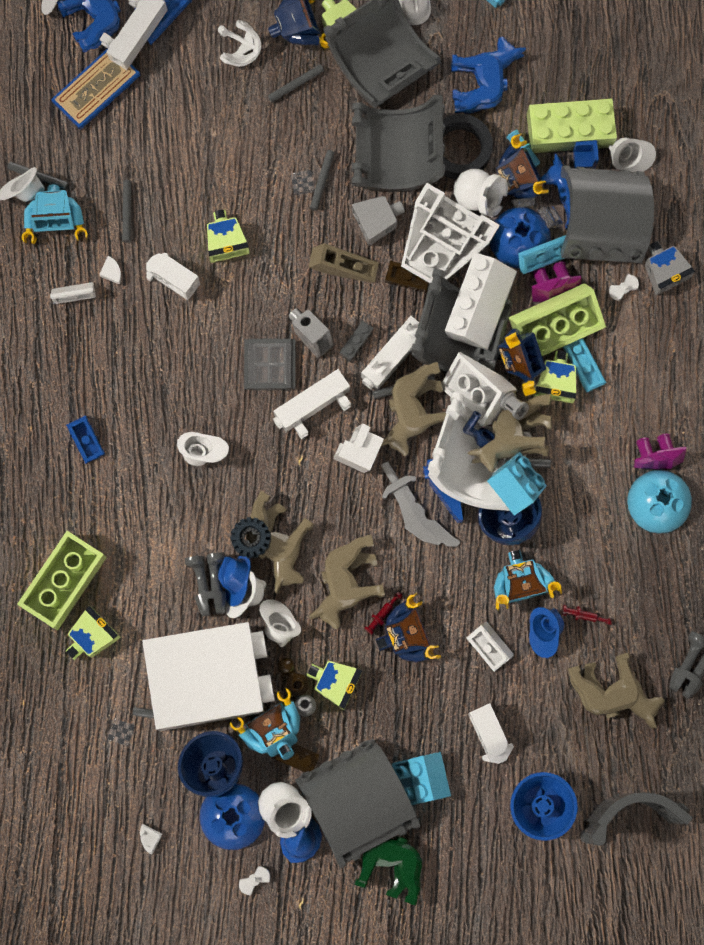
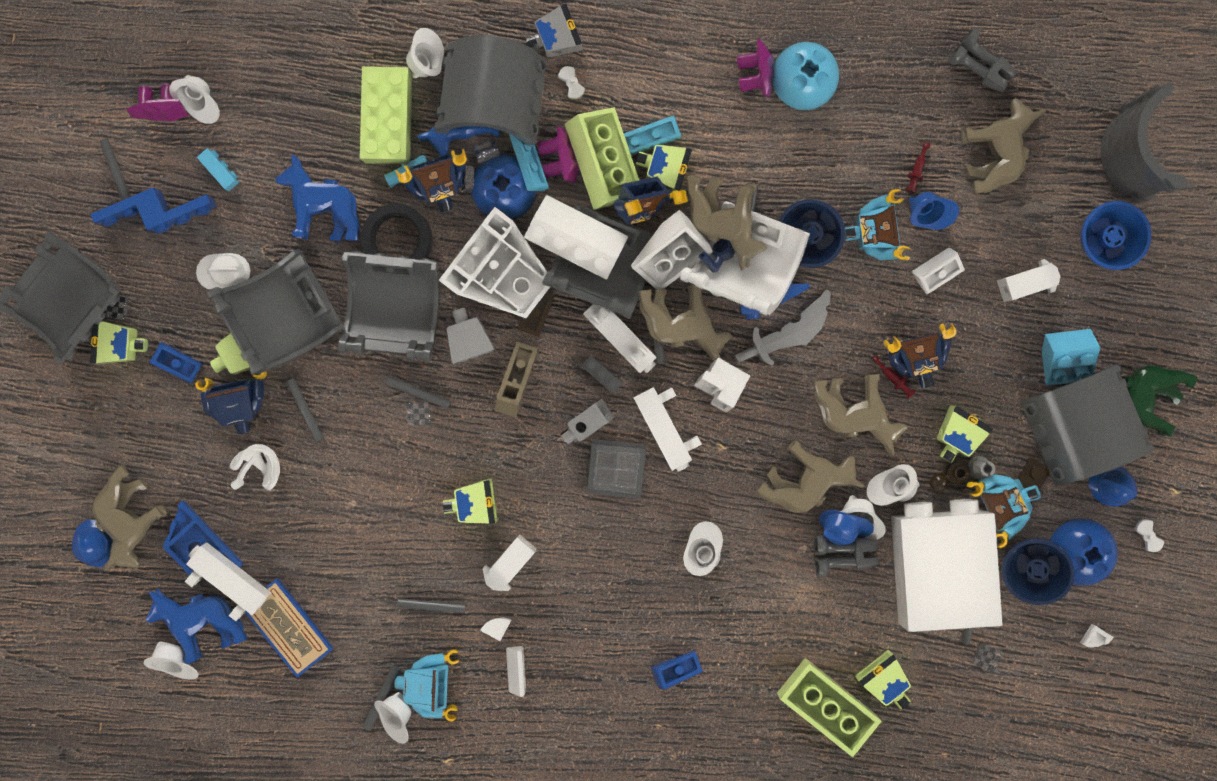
camera: 85 degrees left, 10 degrees up
(257, 528) = (816, 516): black bush -> none
(284, 809) = (1090, 501): white tile -> none
(480, 191) = (453, 223): white tile -> none
(514, 405) = (698, 214): light grey bush -> none
(517, 483) = (786, 221): medium azure slope -> none
(586, 154) = (421, 104): blue panel -> none

